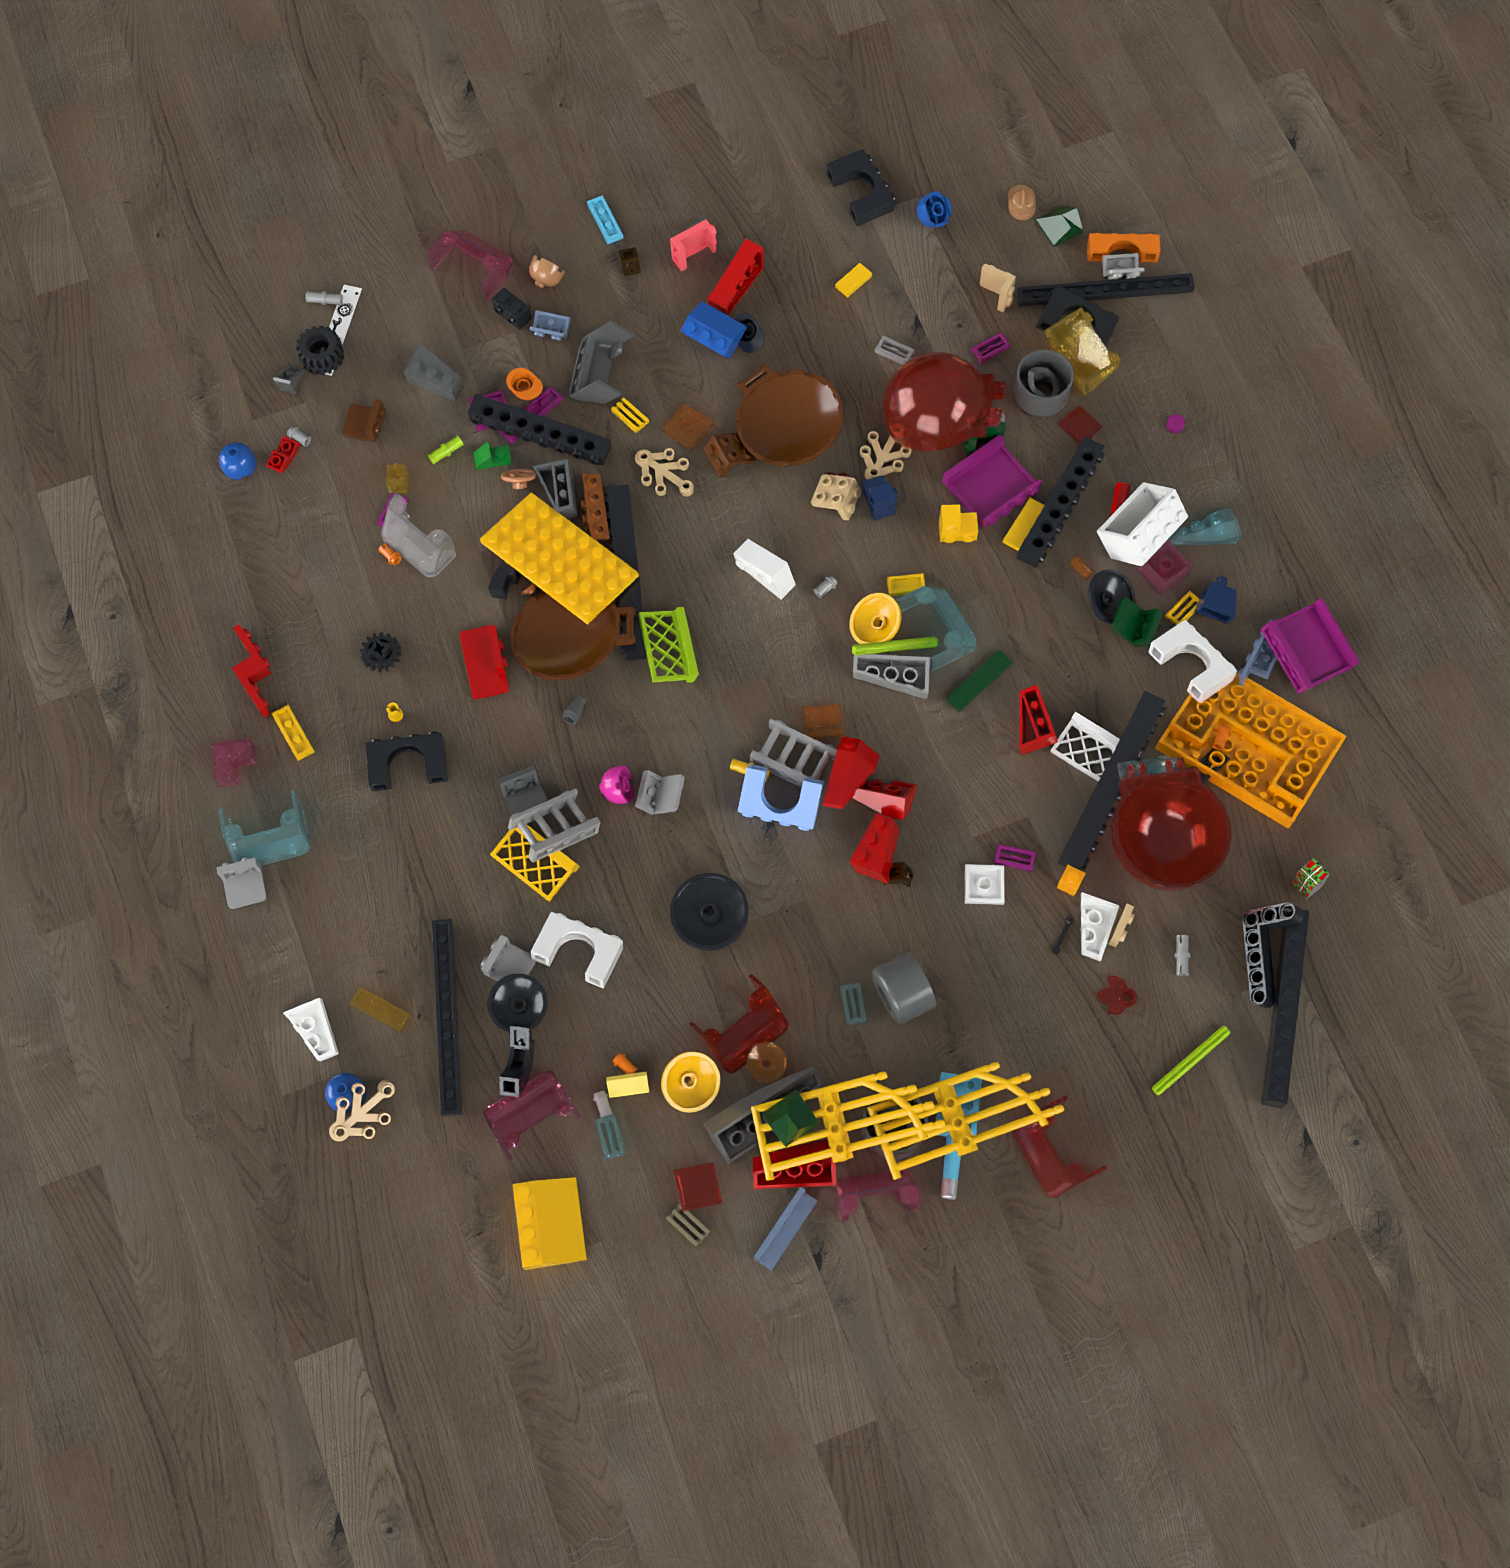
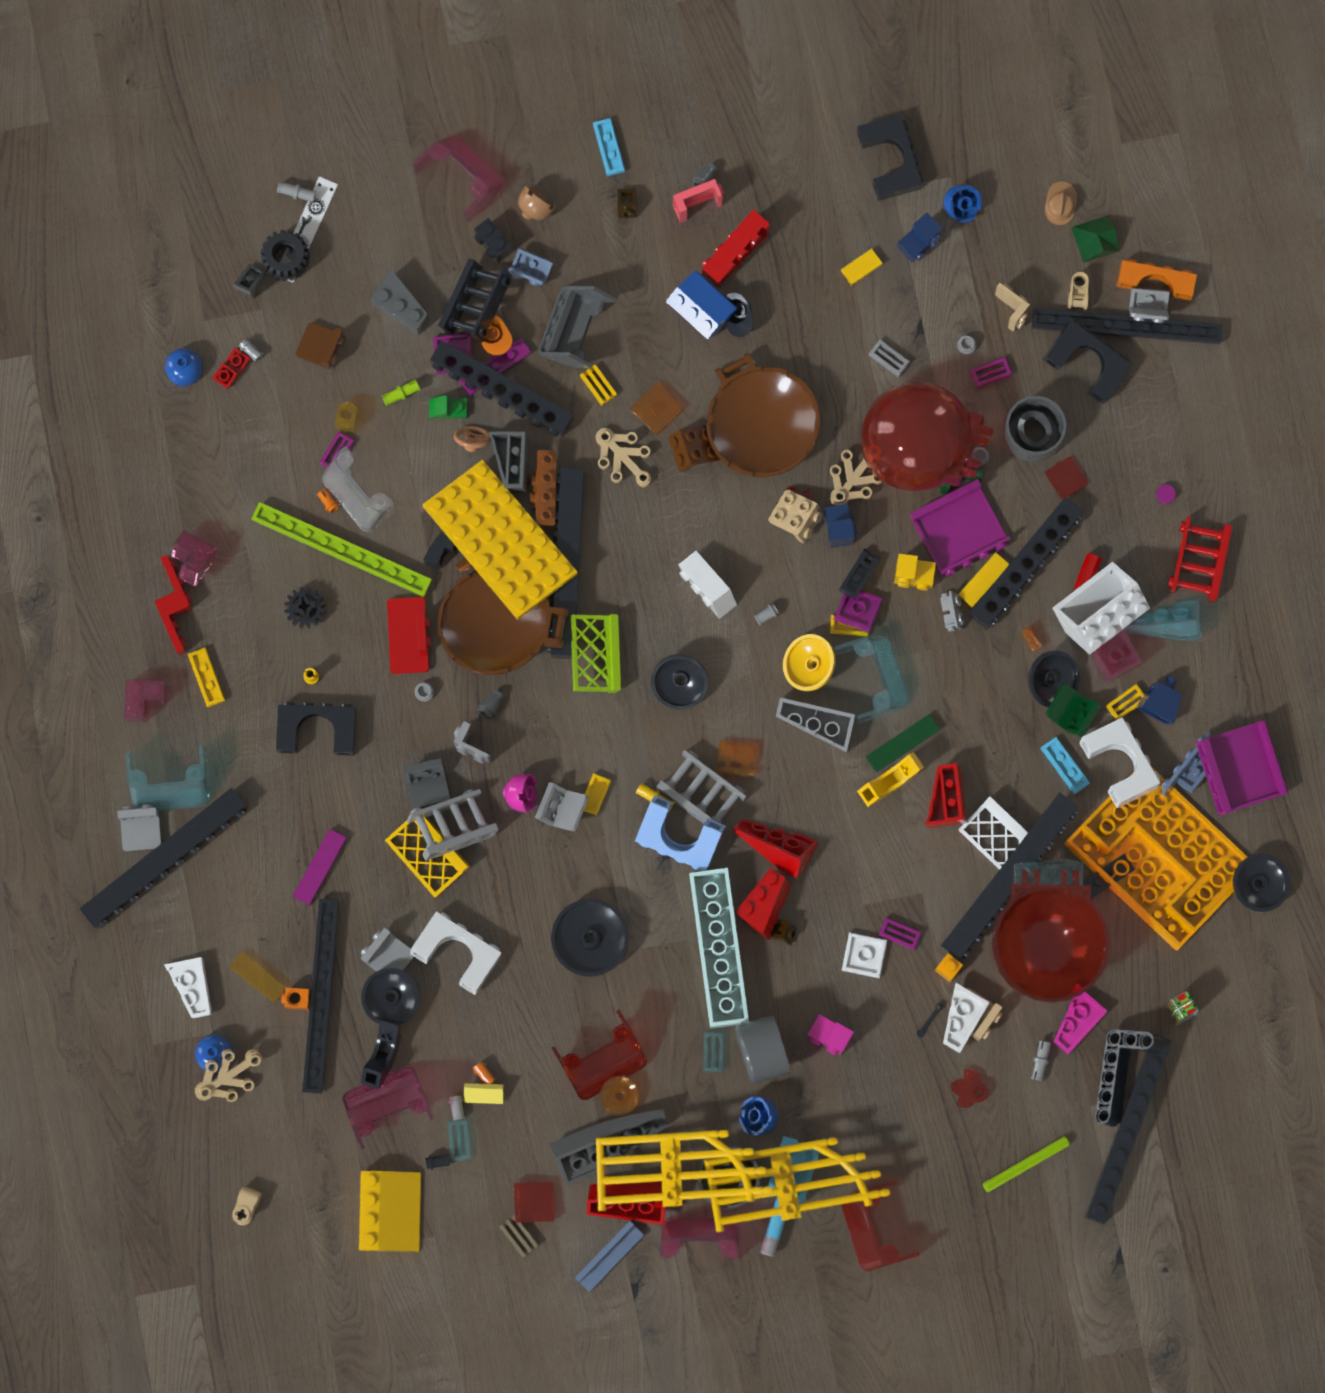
camera: 10 degrees right, 10 degrees up
(266, 621) = (195, 555): none -> clear pink brick
(269, 909) = (163, 858): none -> black brick
(398, 1240) = (247, 1201): none -> tan piece
(409, 595) = (341, 549): none -> lime plate
(428, 891) = (319, 867): none -> magenta tile
(430, 1026) = (304, 1002): none -> orange brick
(491, 353) = (462, 293): none -> black fence
(507, 710) = (424, 691): none -> light grey plate
(558, 752) = (461, 736): none -> light grey bracket
(591, 1162) = (437, 1161): none -> black pin
(692, 772) = (596, 793): none -> yellow tile
(702, 1083) = (549, 1111): yellow dish -> none
(752, 671) = (675, 692): none -> black dish
(790, 1118) = (630, 1157): dark green slope -> none
(839, 900) = (718, 948): none -> light aqua brick
(850, 769) = (755, 816): red wedge -> none
(895, 645) = (823, 694): lime axle -> none
(903, 245) = (924, 235): none -> dark blue brick
(906, 536) = (859, 574): none -> black plate
(911, 567) = (859, 612): none -> magenta tile
(912, 1057) = (758, 1116): none -> blue cylinder
(963, 328) = (966, 344): none -> light grey plate
(968, 965) = (830, 1035): none -> dark pink brick
(978, 713) = (891, 780): none -> yellow arch
(998, 548) = (955, 618): none -> light grey hinge
(1055, 269) = (1078, 294): none -> tan piece
(1083, 349) = (1082, 401): clear yellow windscreen -> none
(1138, 674) = (1065, 765): none -> medium azure tile
(1210, 910) = (1080, 1019): none -> dark pink wing
(1223, 733) = (1129, 848): orange pin -> none
(1239, 464) = (1219, 554): none -> red fence
(1364, 743) = (1273, 880): none -> black dish

